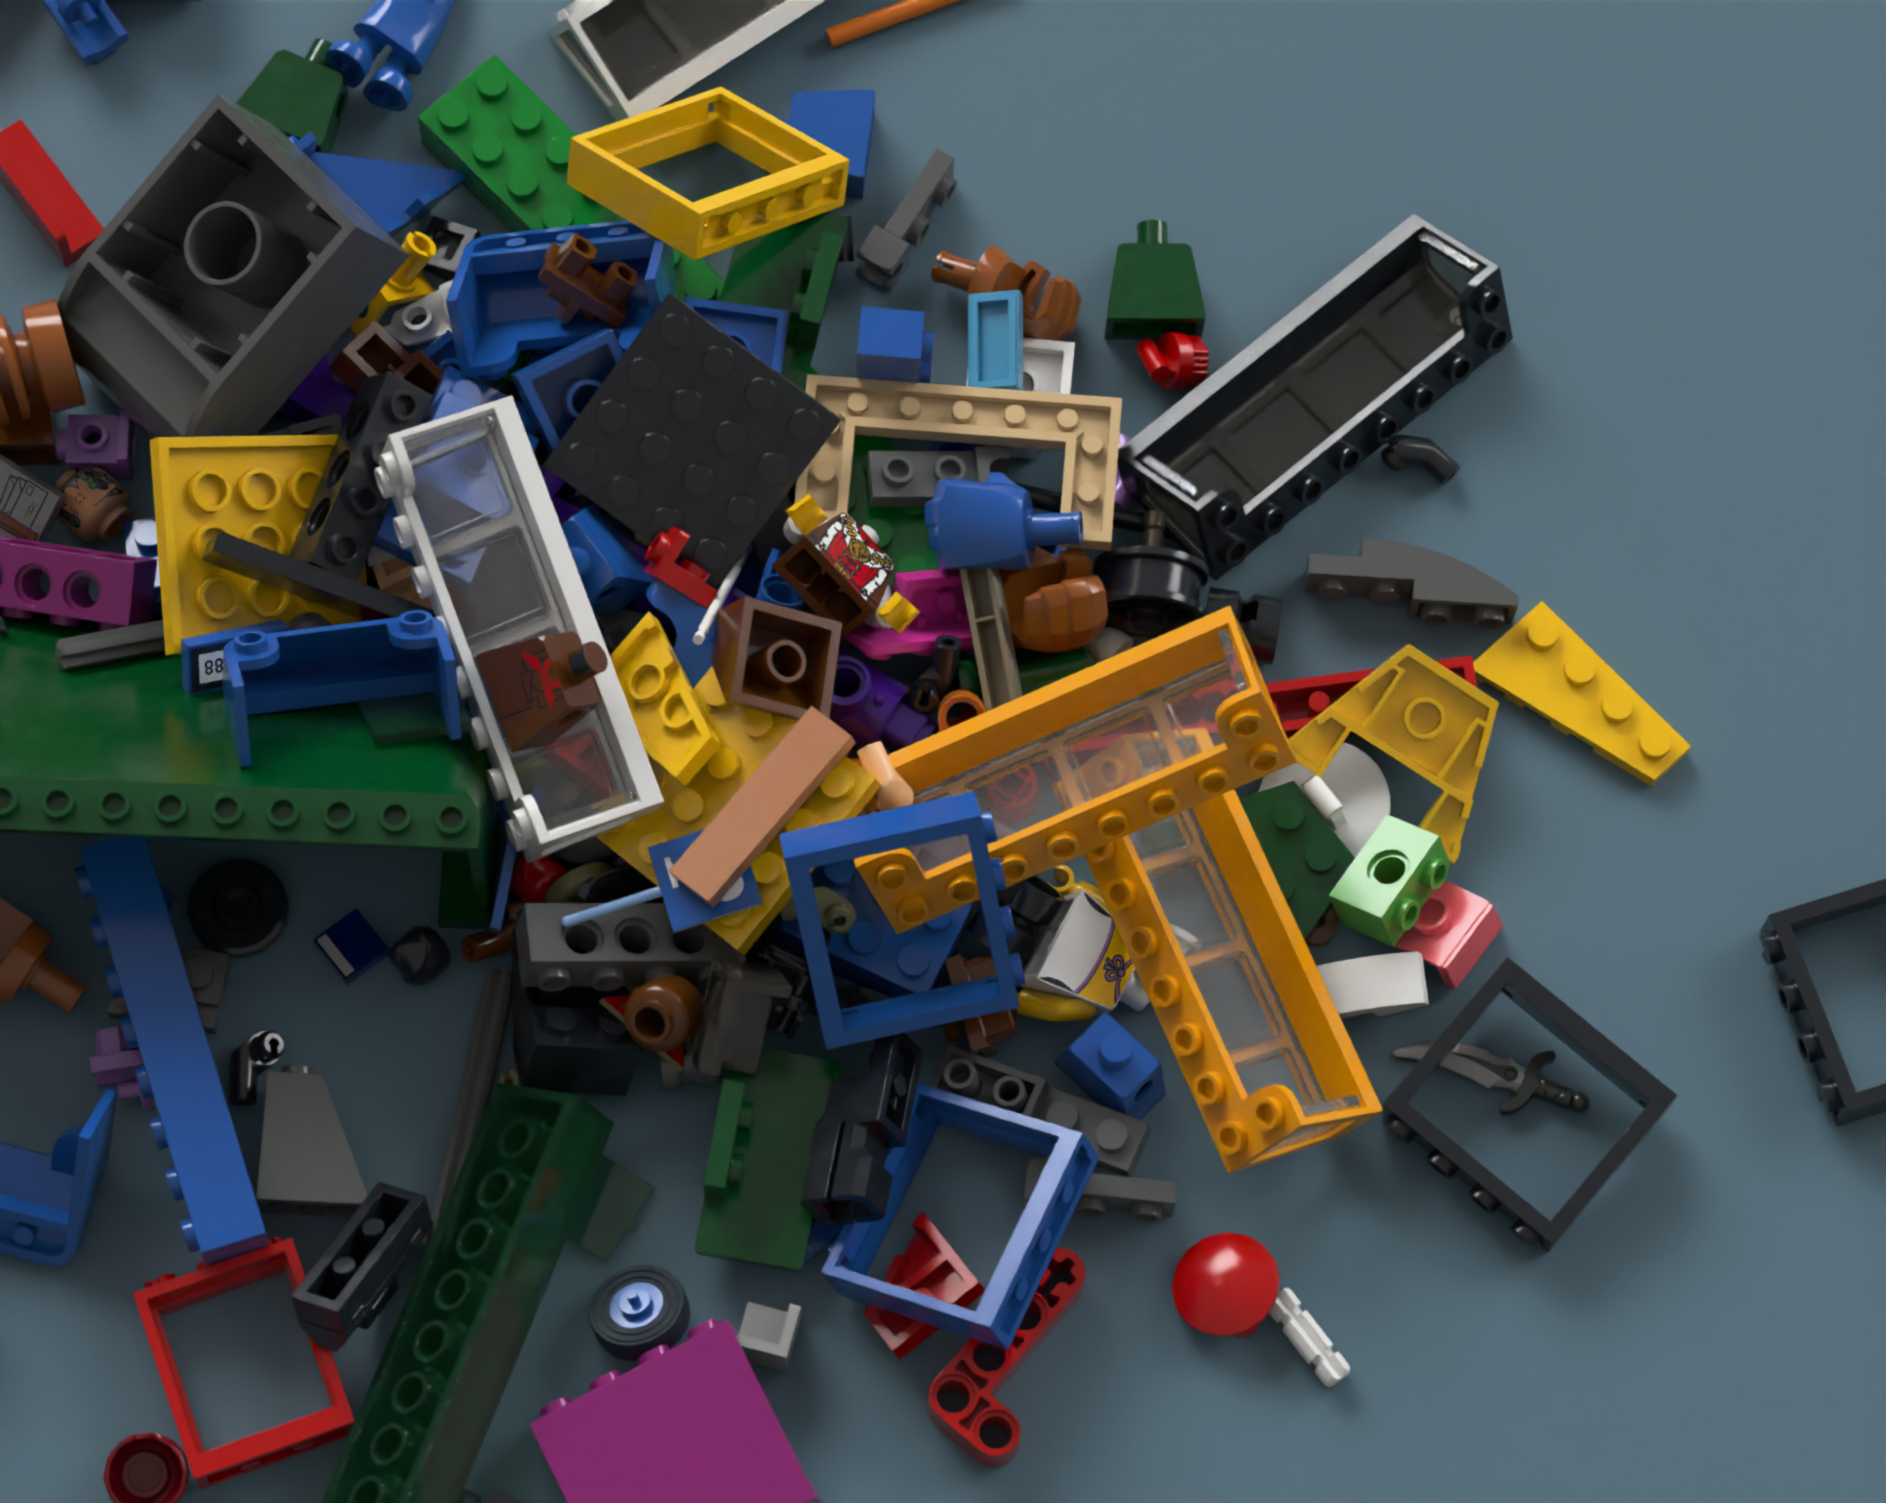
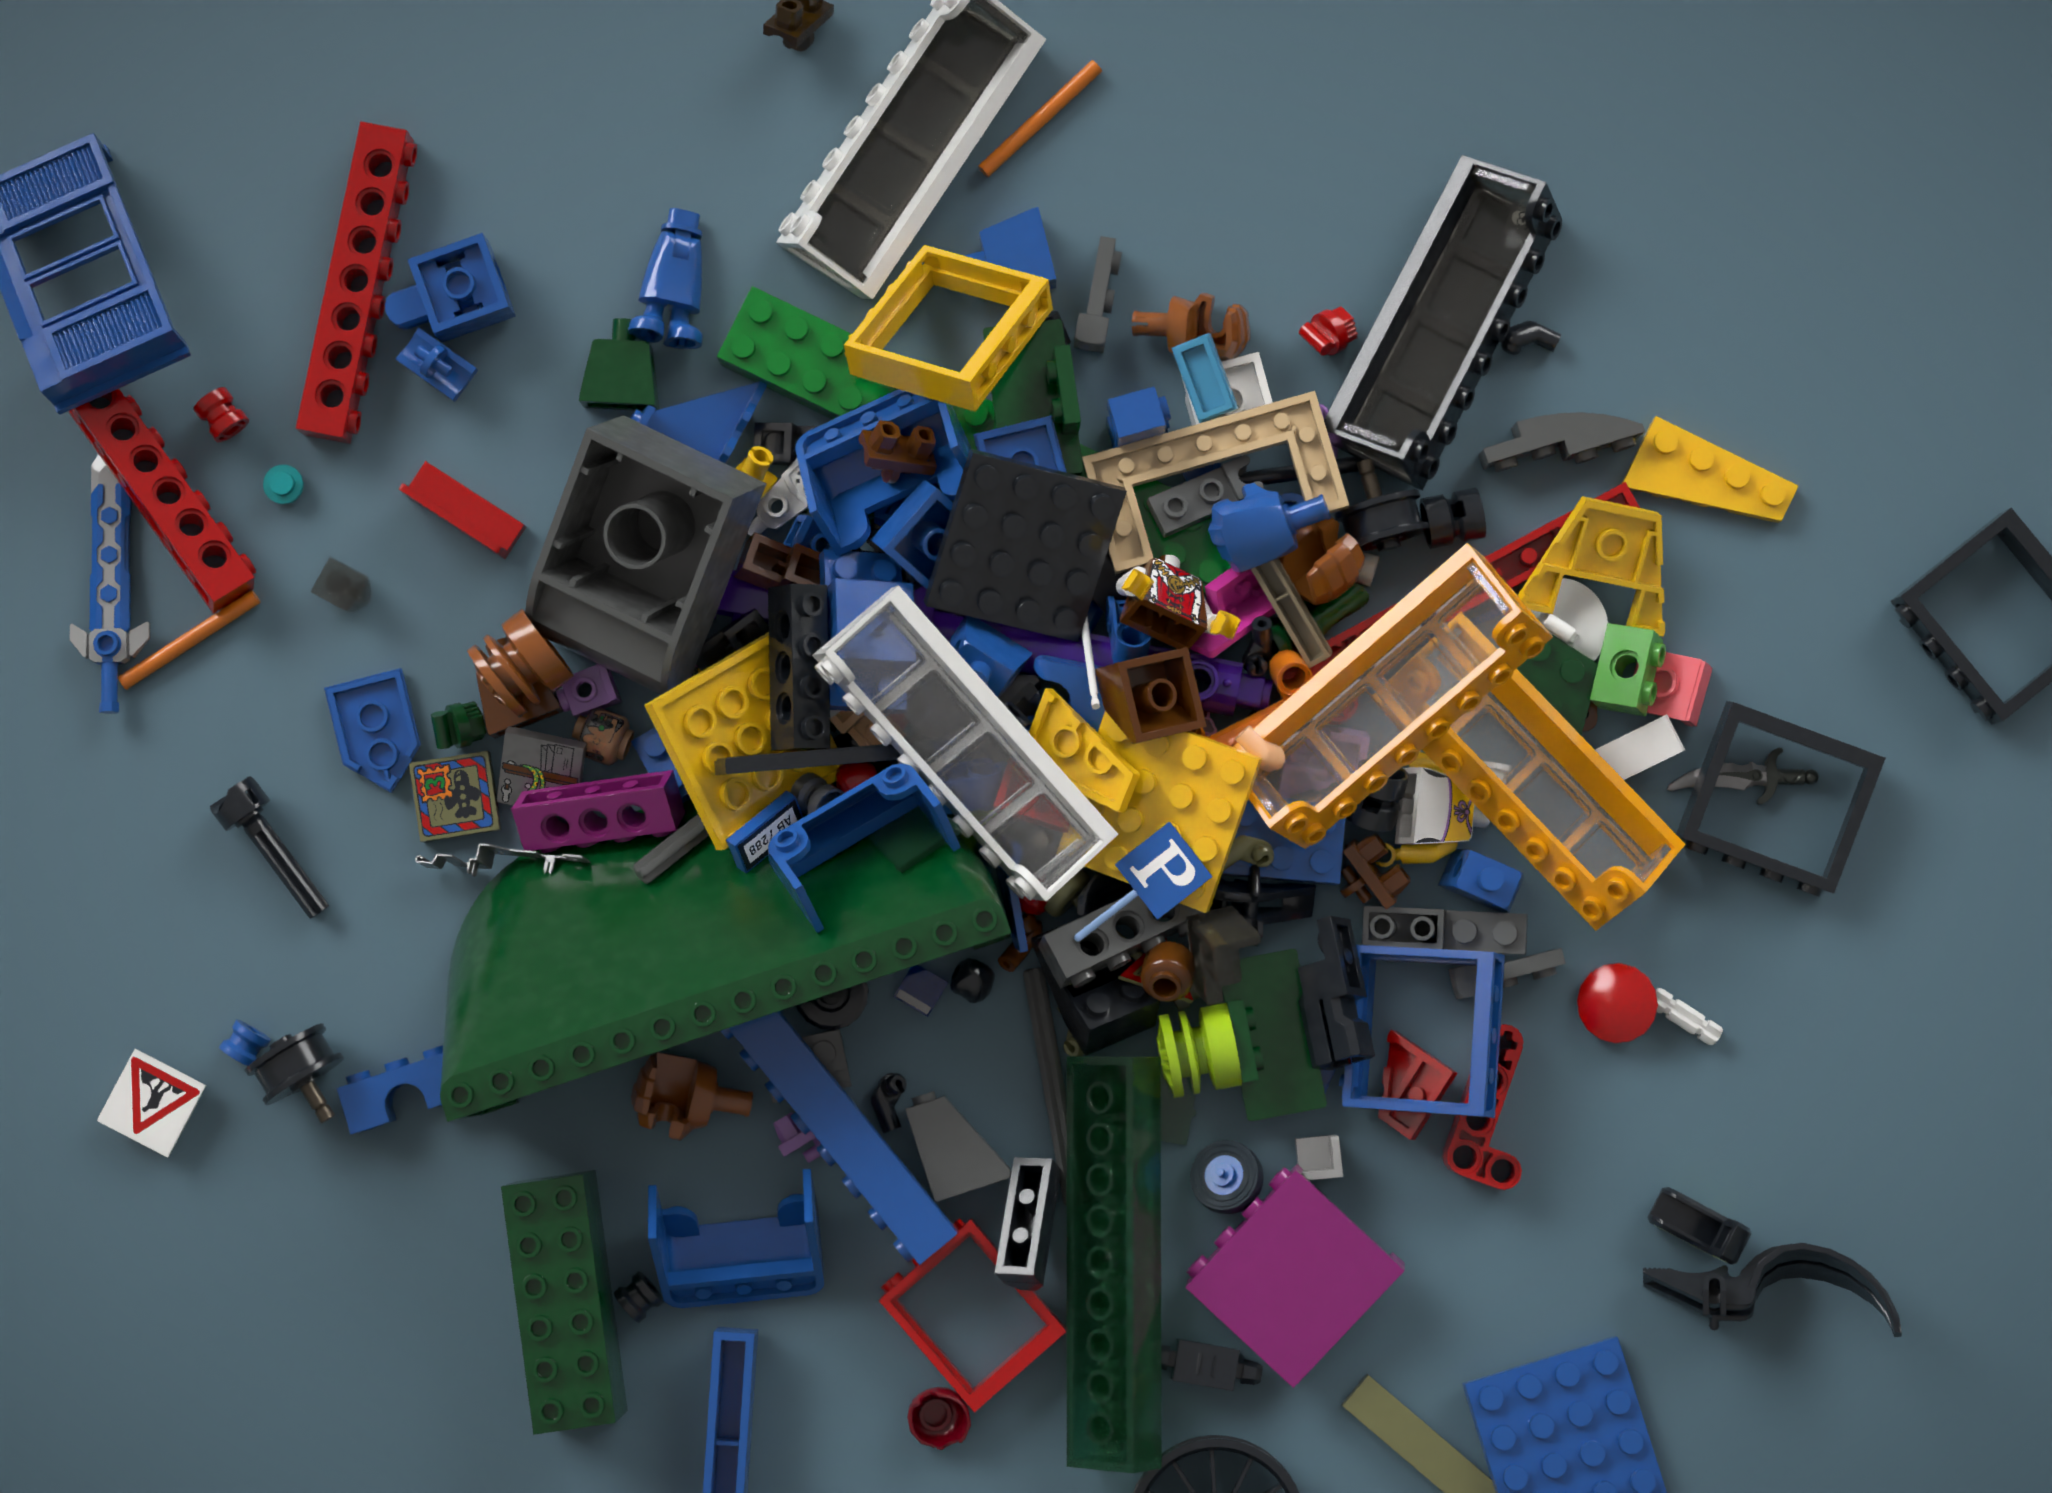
camera: 15 degrees left, 15 degrees up
(542, 686) = (999, 783): reddish brown torso -> none
(663, 1136) = (1199, 1050): none -> lime wheel
(686, 576) = (1051, 647): red bracket -> none
(762, 806) = (1187, 809): nougat tile -> none
(888, 832) = (1287, 807): blue window -> none
(1154, 288) = (1294, 281): dark green torso -> none

